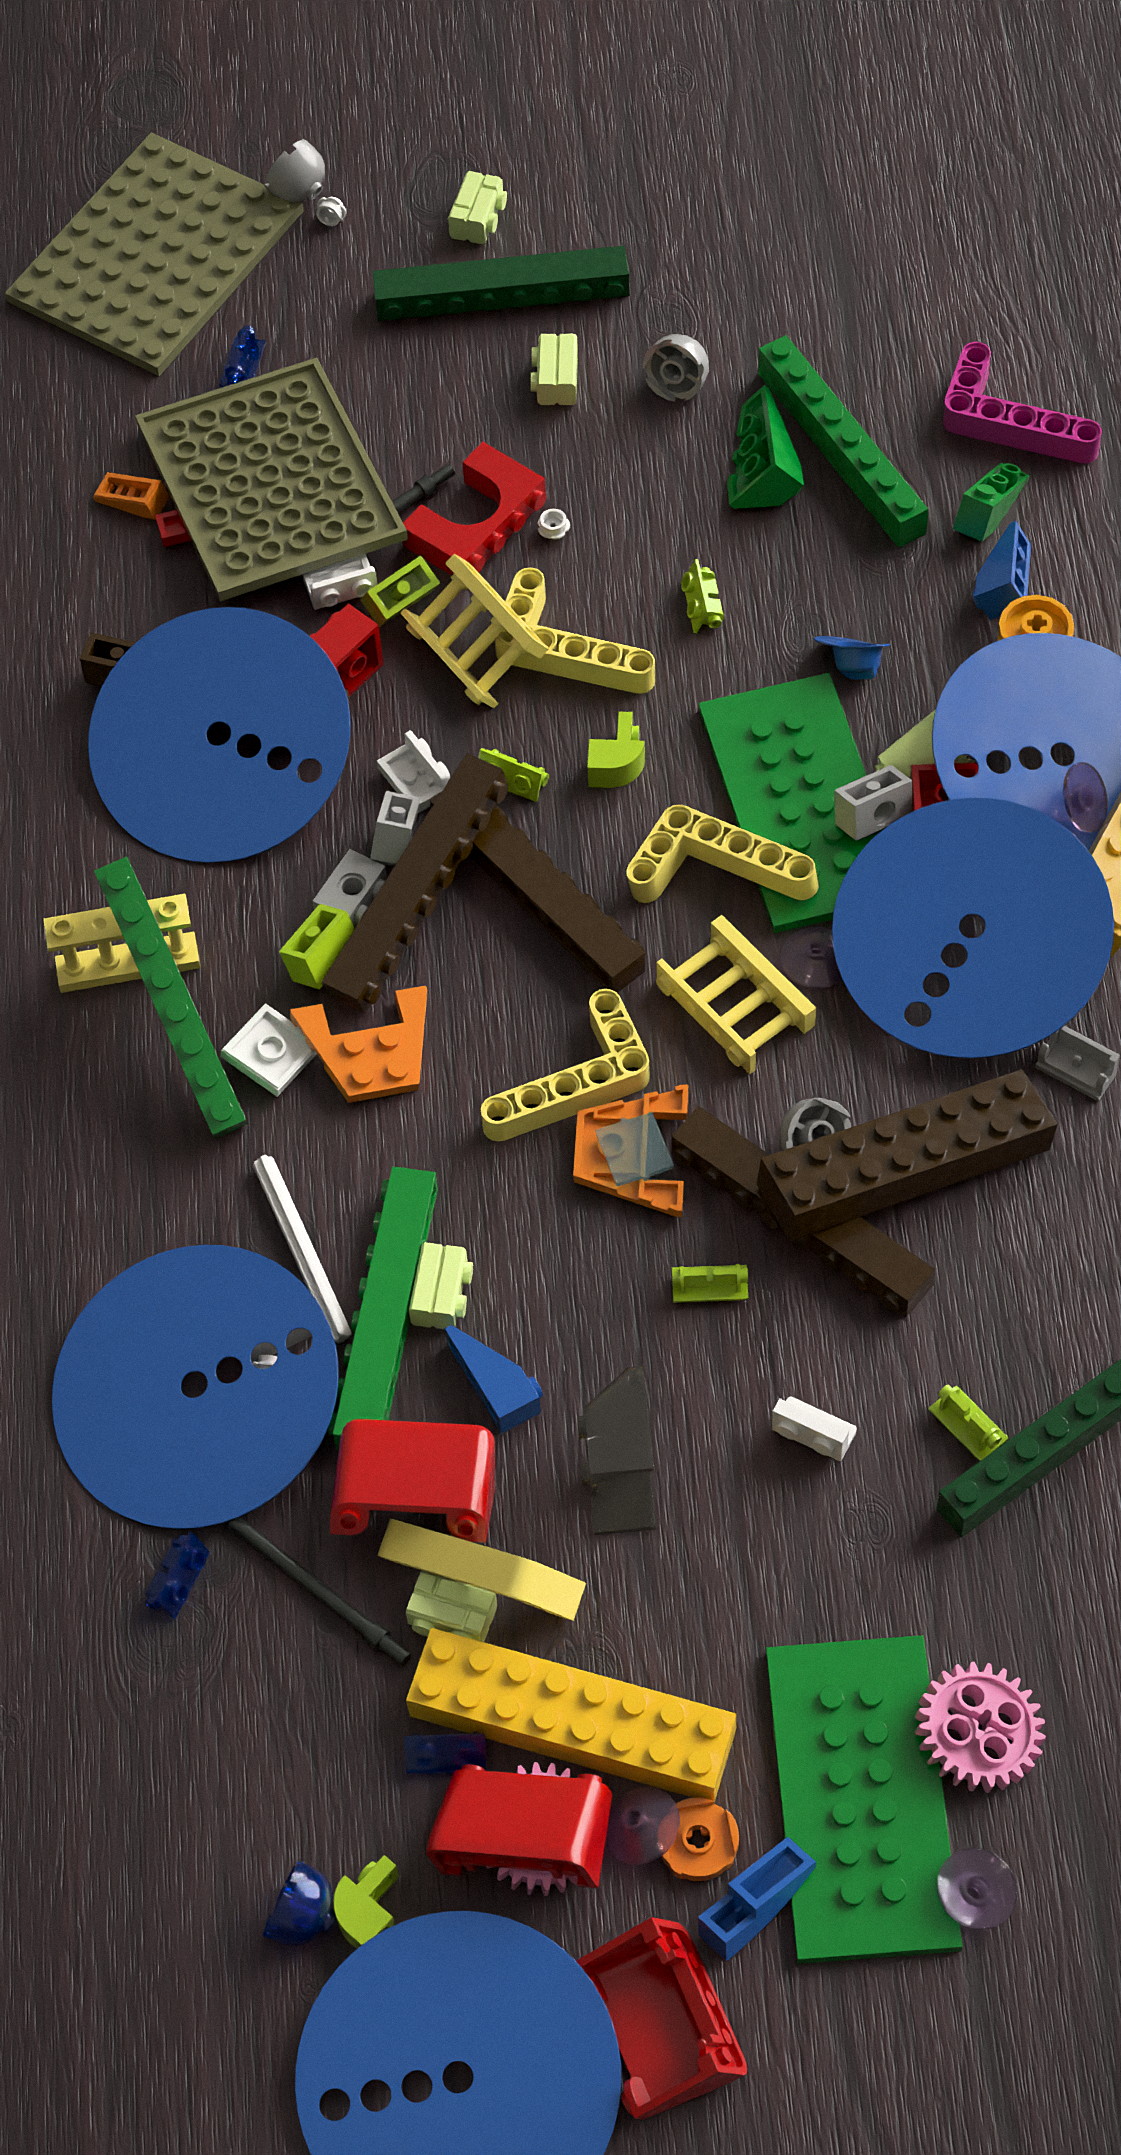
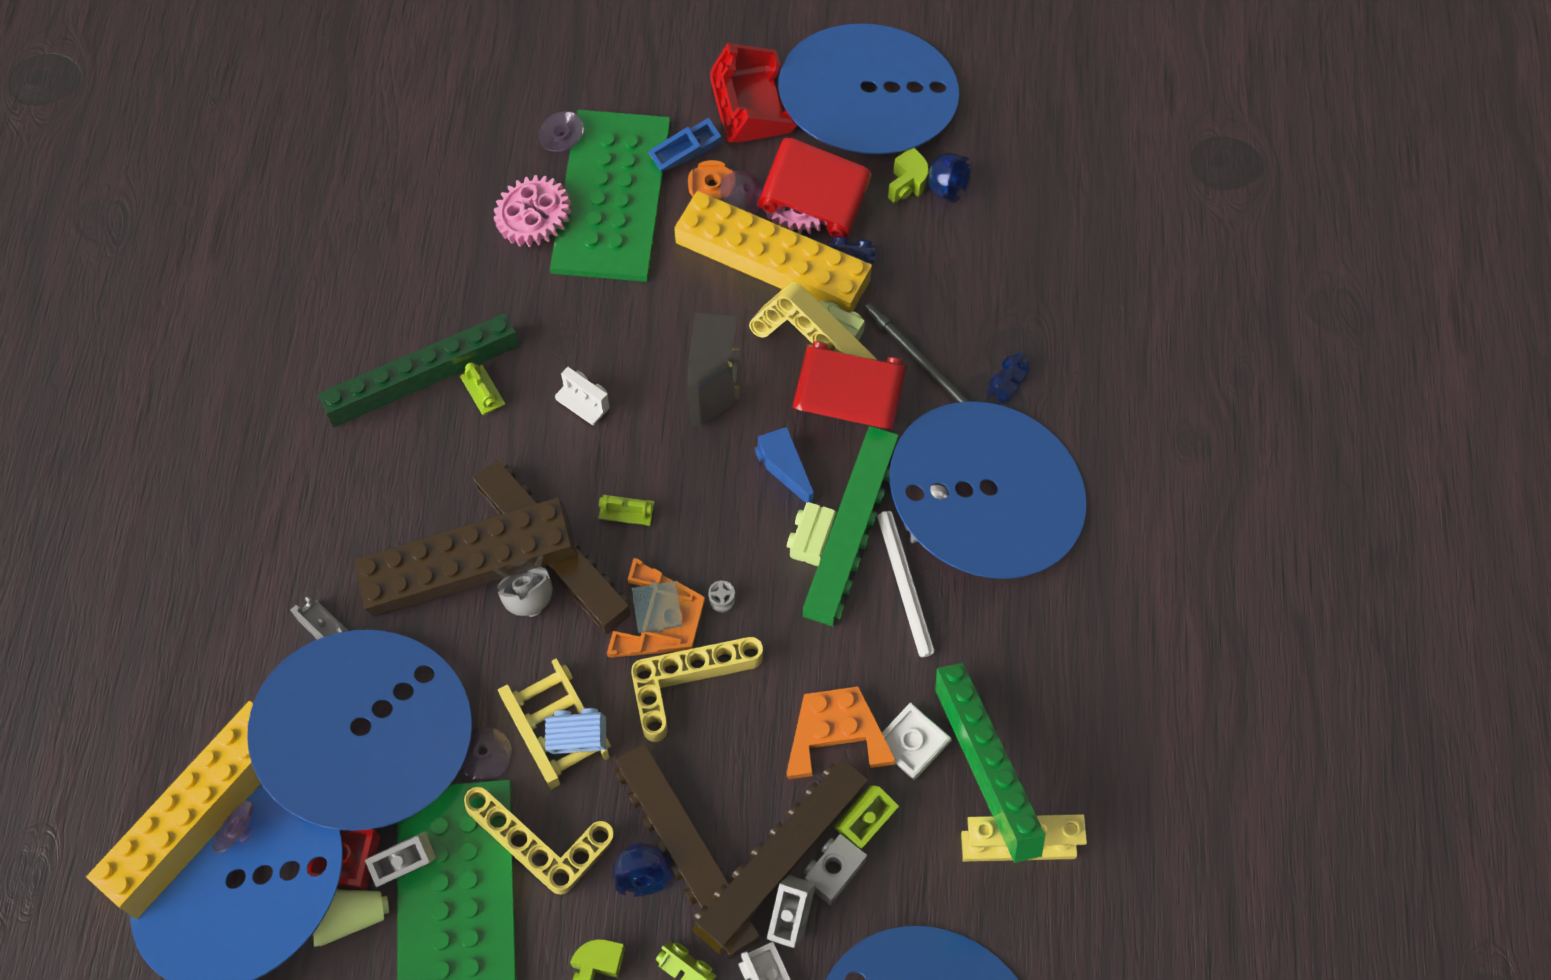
camera: 175 degrees left, 5 degrees up
(555, 1178) = (721, 590): none -> light grey wheel
(586, 850) = (641, 870): none -> clear blue cylinder
(699, 964) = (575, 732): none -> light blue brick

